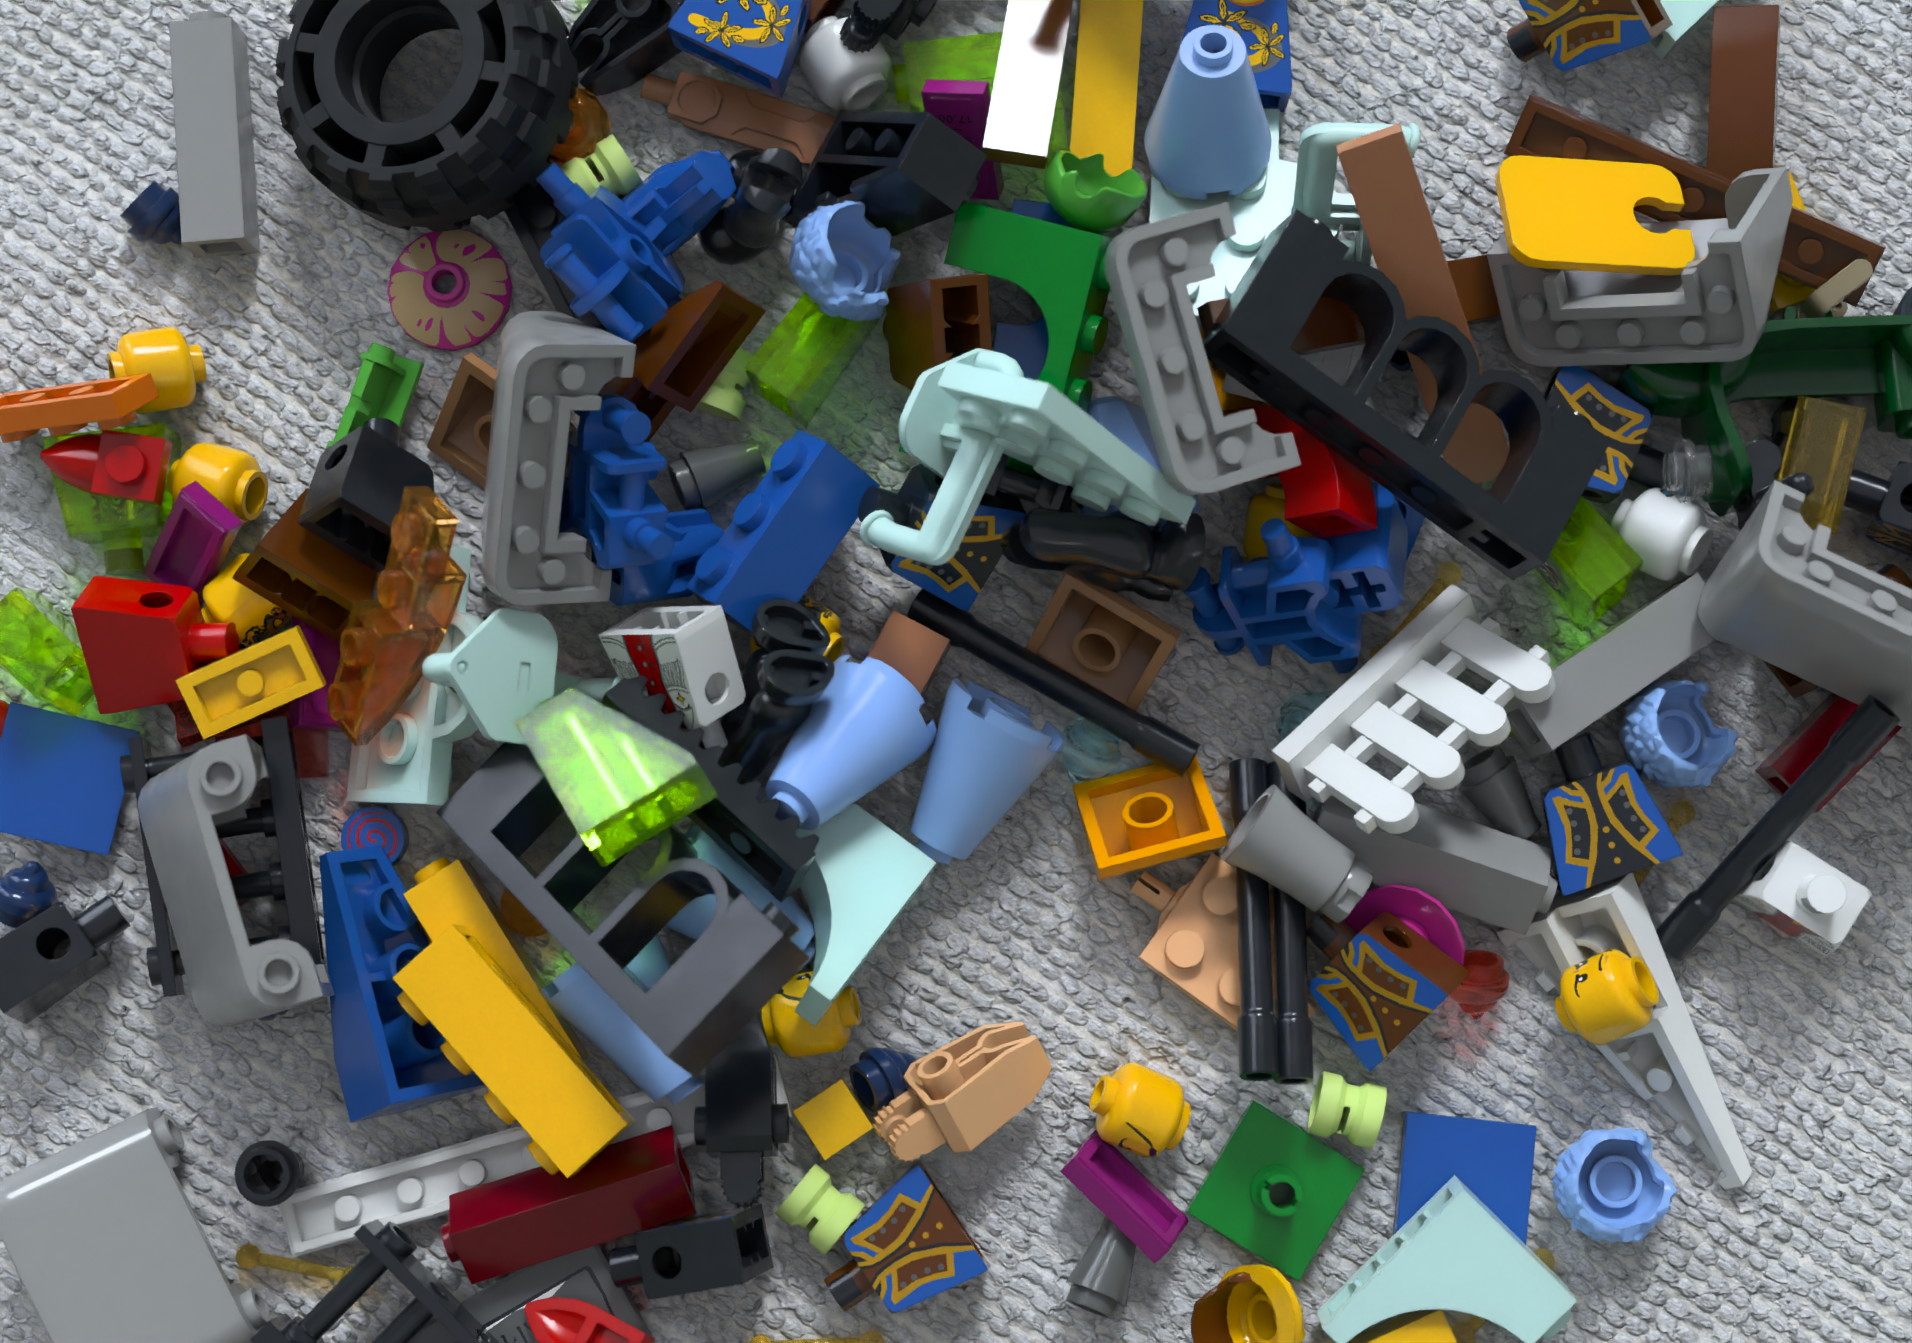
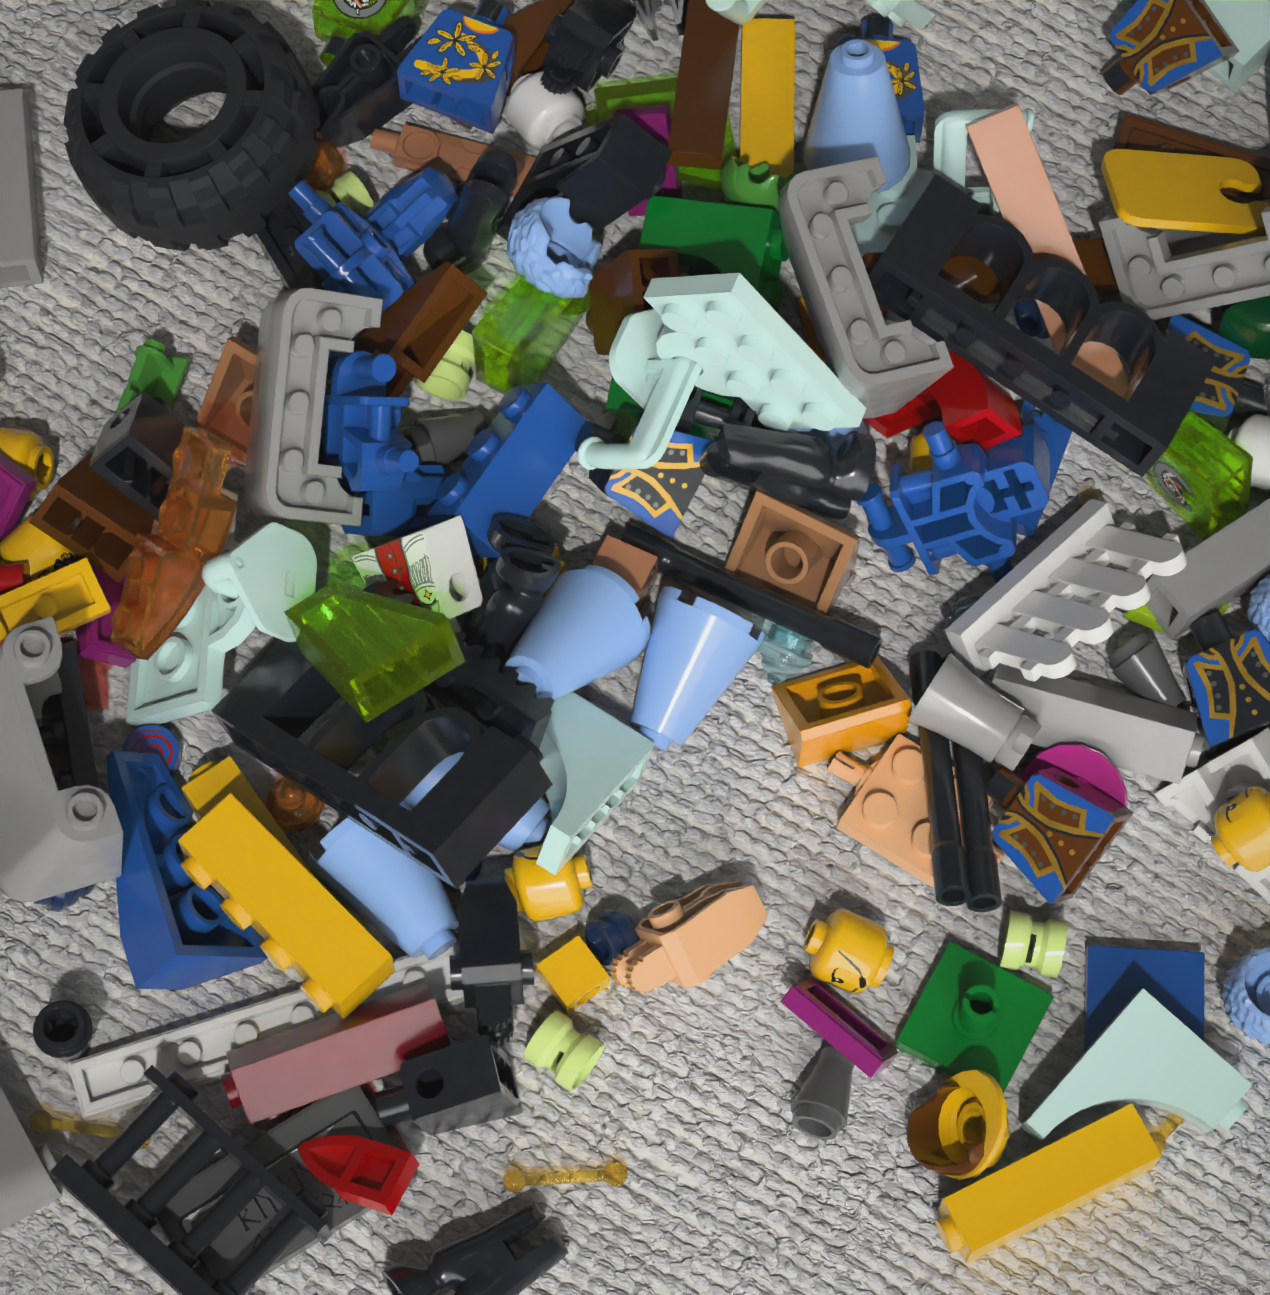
camera: 10 degrees left, 15 degrees down
(467, 312) = (206, 326): tan dish -> none
(905, 1247) = (644, 1079): torso -> none
(1484, 984) = (1143, 835): clear red plate -> none

